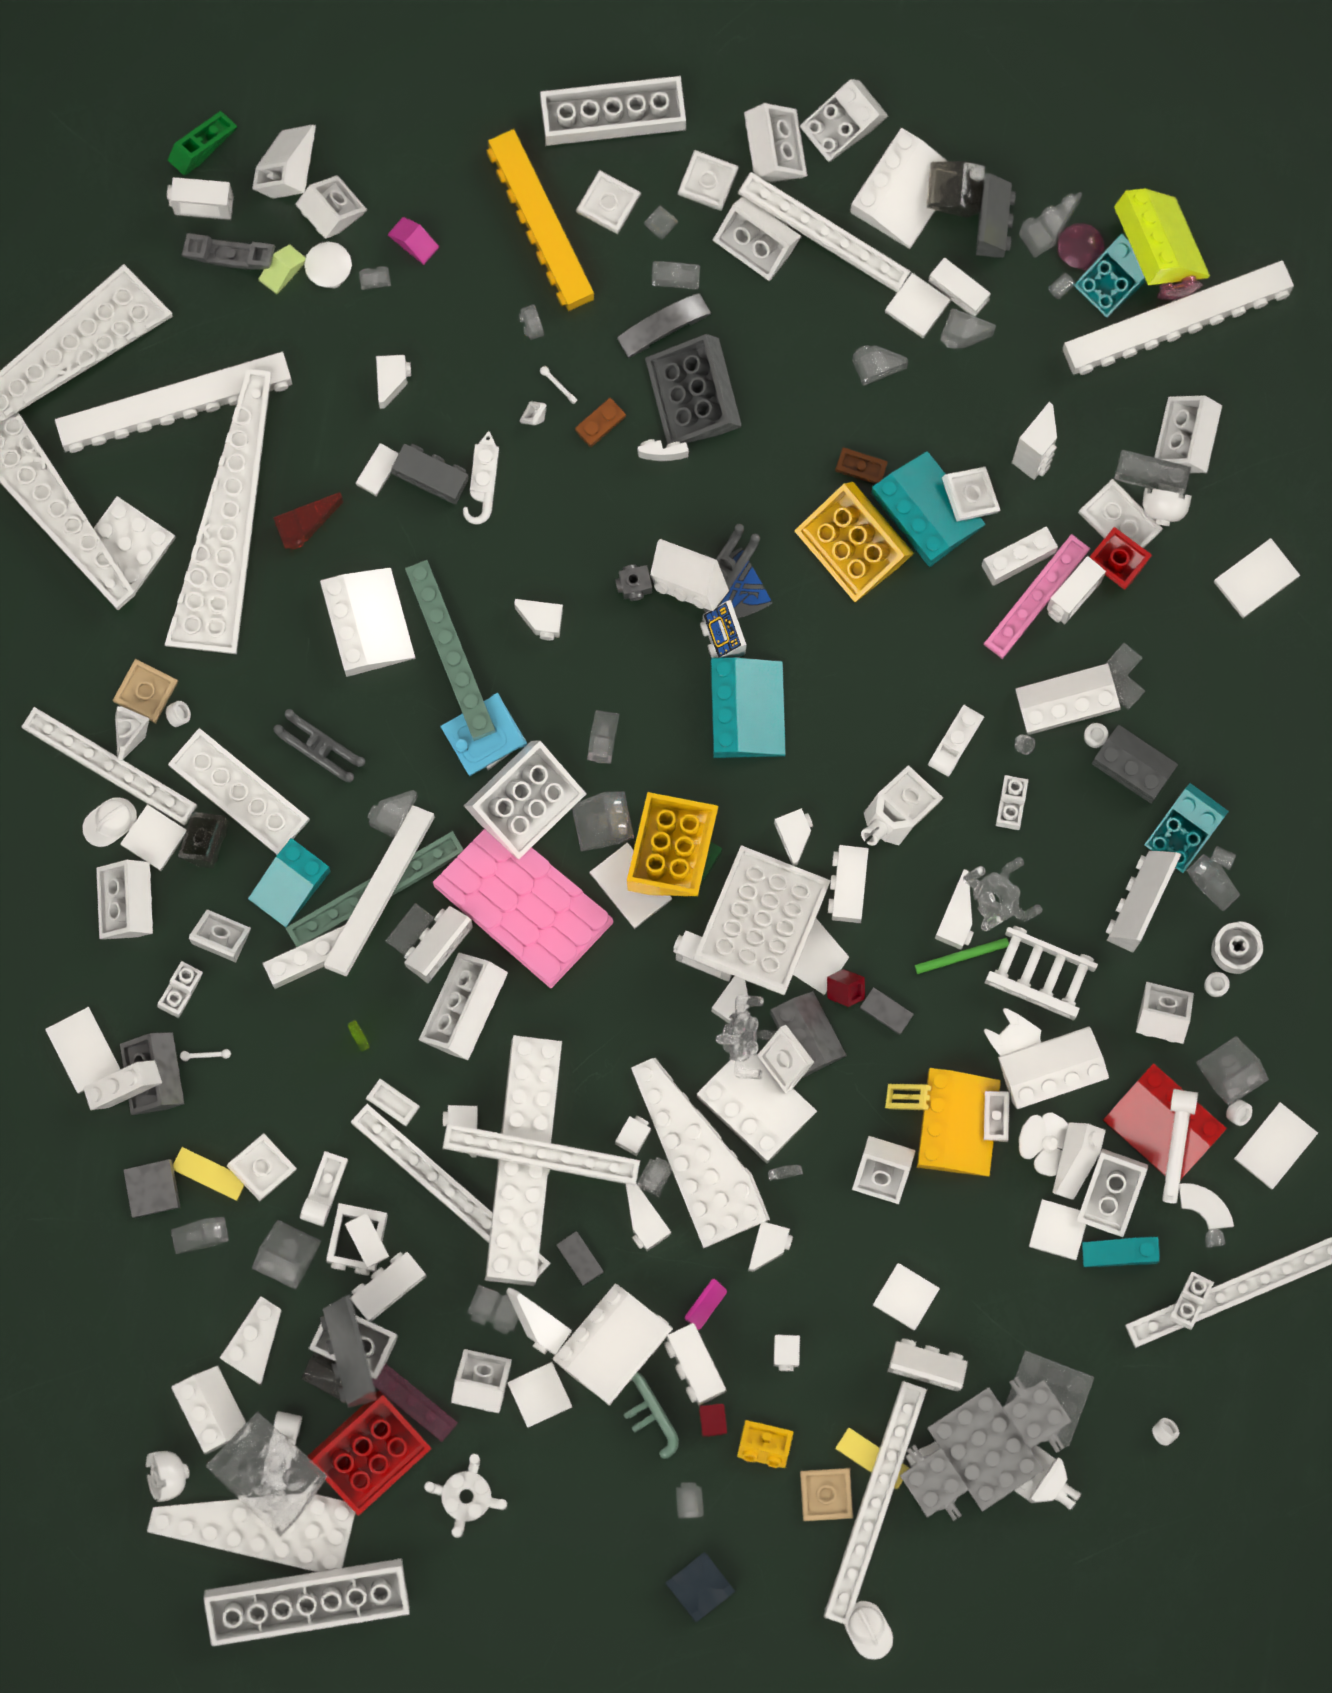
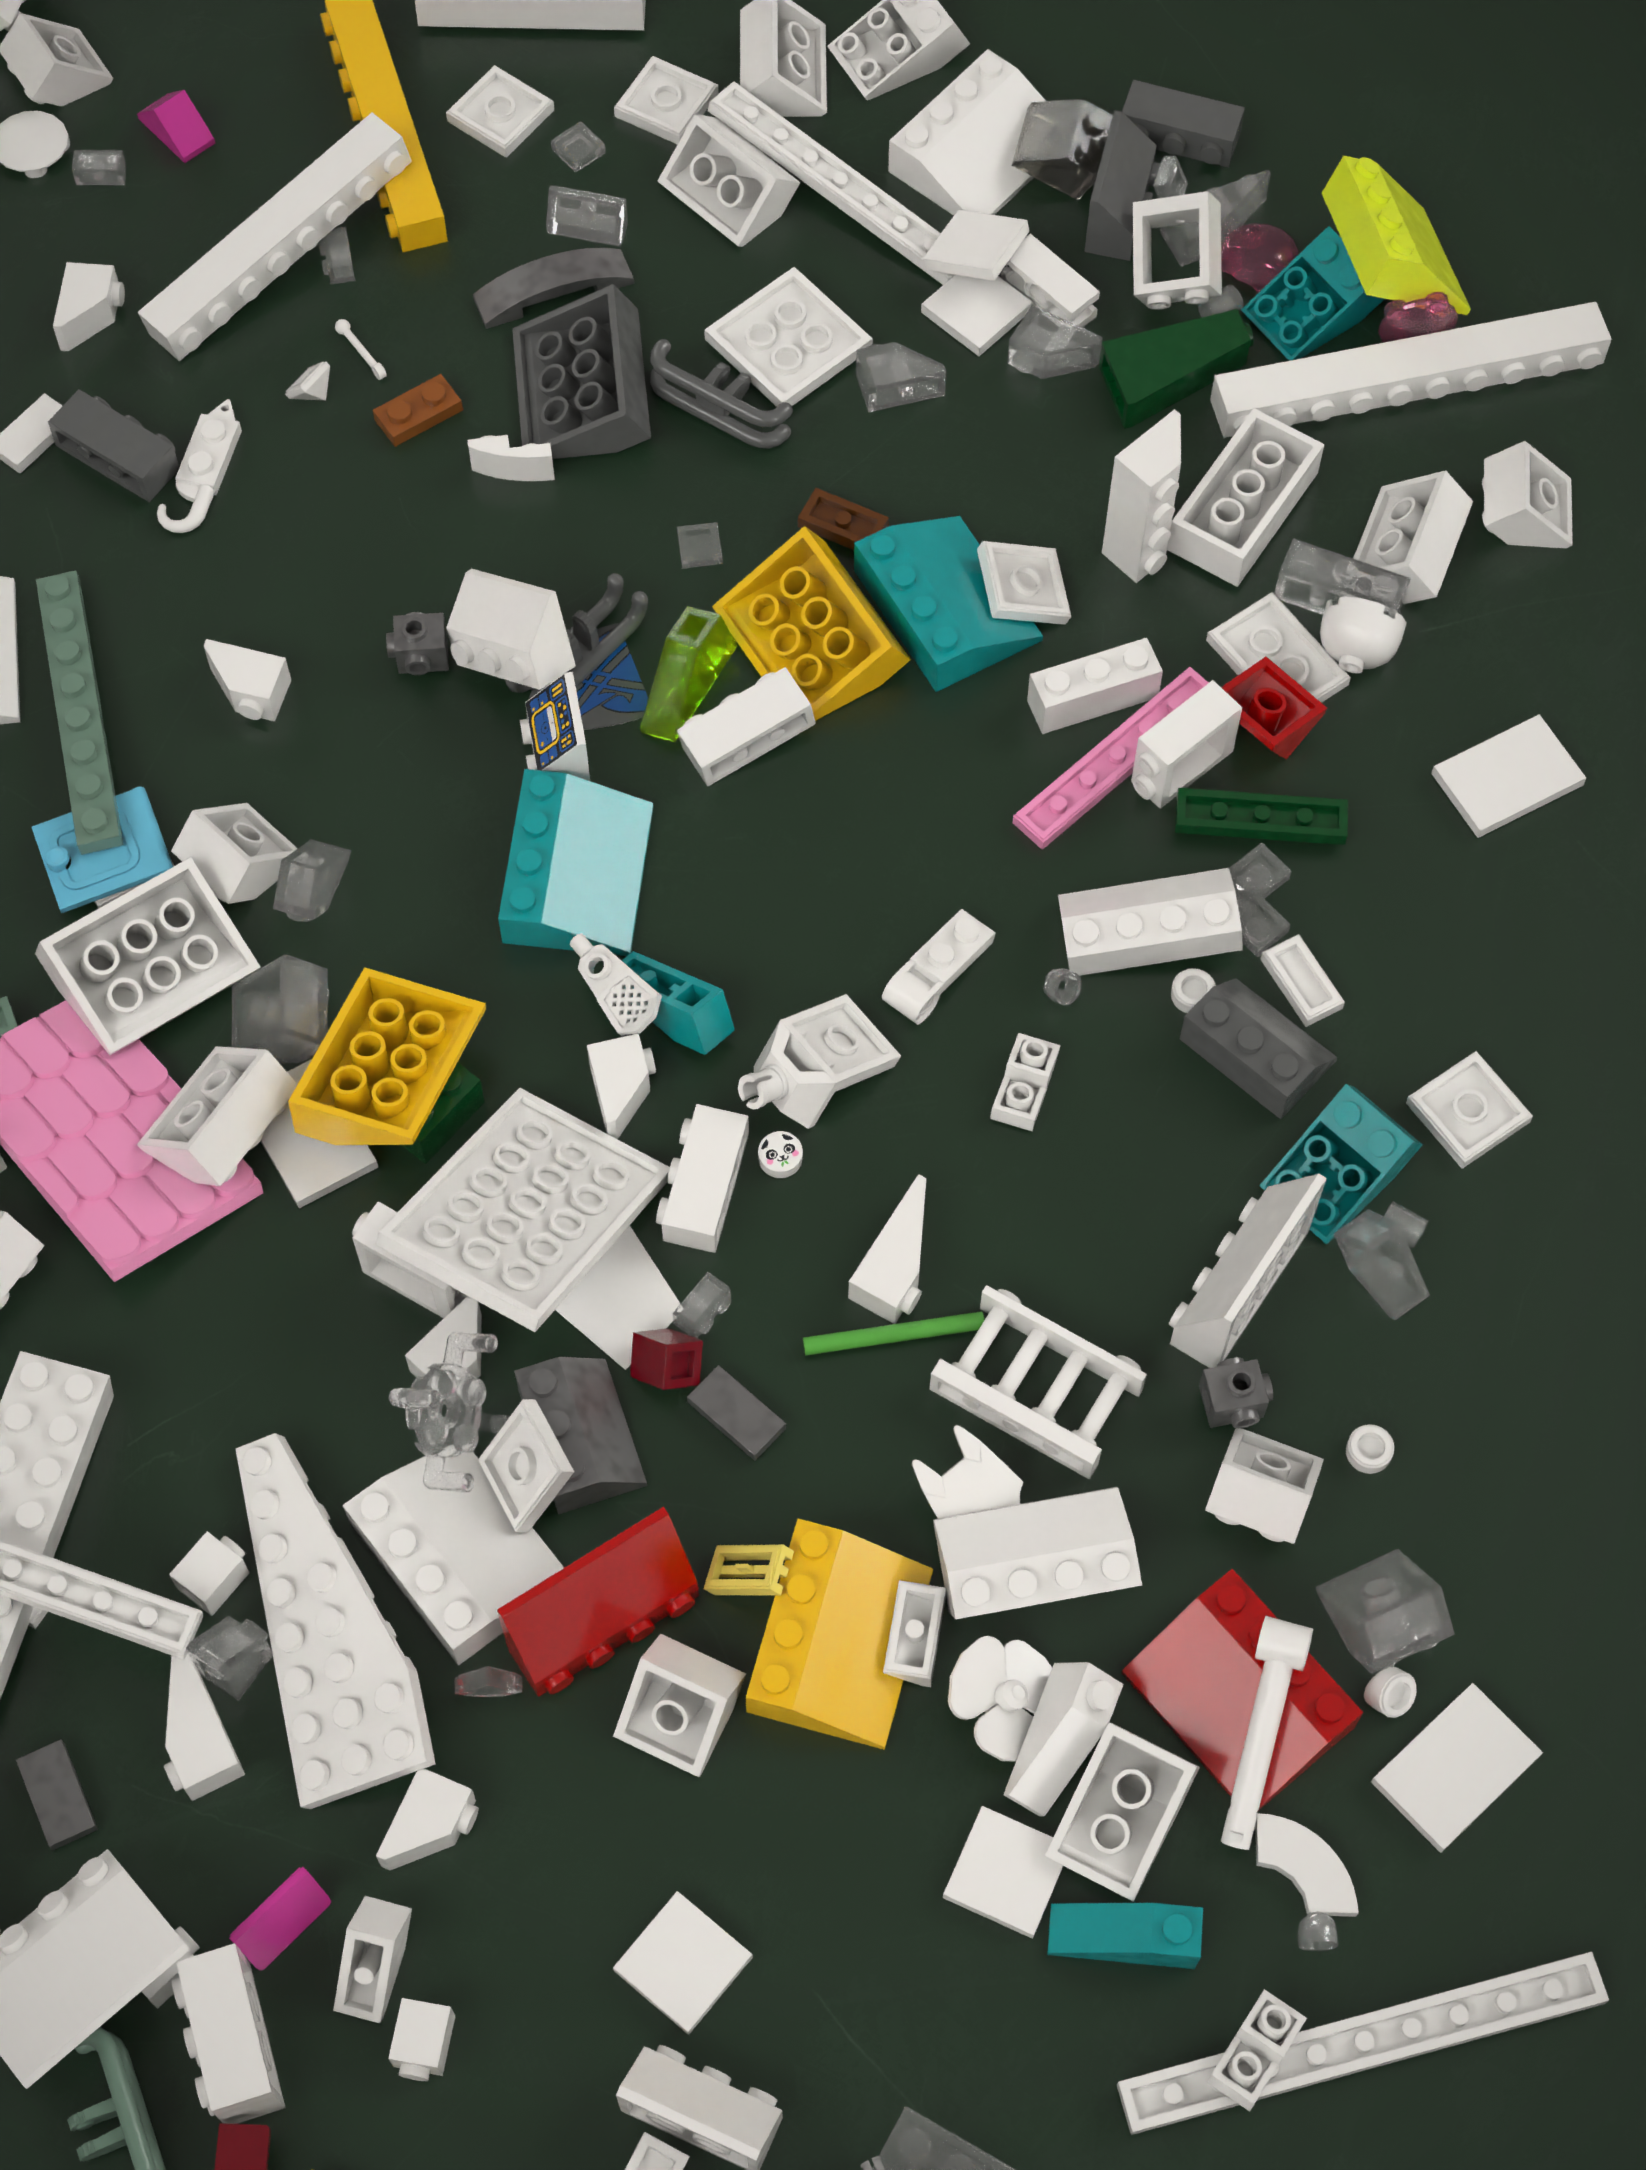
camera: 10 degrees right, 15 degrees down
(497, 321) = (275, 236): none -> white brick
(558, 725) = (233, 850): none -> white slope
(585, 887) = (219, 1114): none -> white slope
(754, 1317) = (371, 1958): none -> white slope
(774, 399) = (716, 404): none -> dark grey piece
(780, 491) = (699, 545): none -> clear tile
(782, 779) = (612, 982): none -> white piece
(788, 581) = (686, 671): none -> clear neon green slope
(810, 345) = (788, 338): none -> white plate
(814, 783) = (689, 1008): none -> teal slope
(827, 609) = (746, 726): none -> white brick
(837, 1128) = (599, 1604): none -> red slope
(859, 954) = (702, 1305): none -> clear piece
(886, 863) = (780, 1154): none -> white tile
(913, 270) = (976, 245): none -> white tile
(1008, 894) = (984, 1217): clear plate -> none
(1022, 205) = (1170, 178): none -> clear tile
(1023, 159) = (1185, 122): none -> dark grey brick
(1035, 333) = (1171, 362): none -> dark green slope
(1052, 254) = (1172, 211): none -> white window
(1091, 421) = (1245, 497): none -> white brick
(1122, 624) = (1261, 816): none -> dark green plate
(1138, 972) = (1235, 1393): none -> flat silver brick
(1154, 720) = (1302, 980): none -> white tile
(1249, 952) = (1409, 1405): white brick -> none
(1252, 785) = (1469, 1109): none -> white tile
(1253, 398) = (1527, 499): none -> white slope

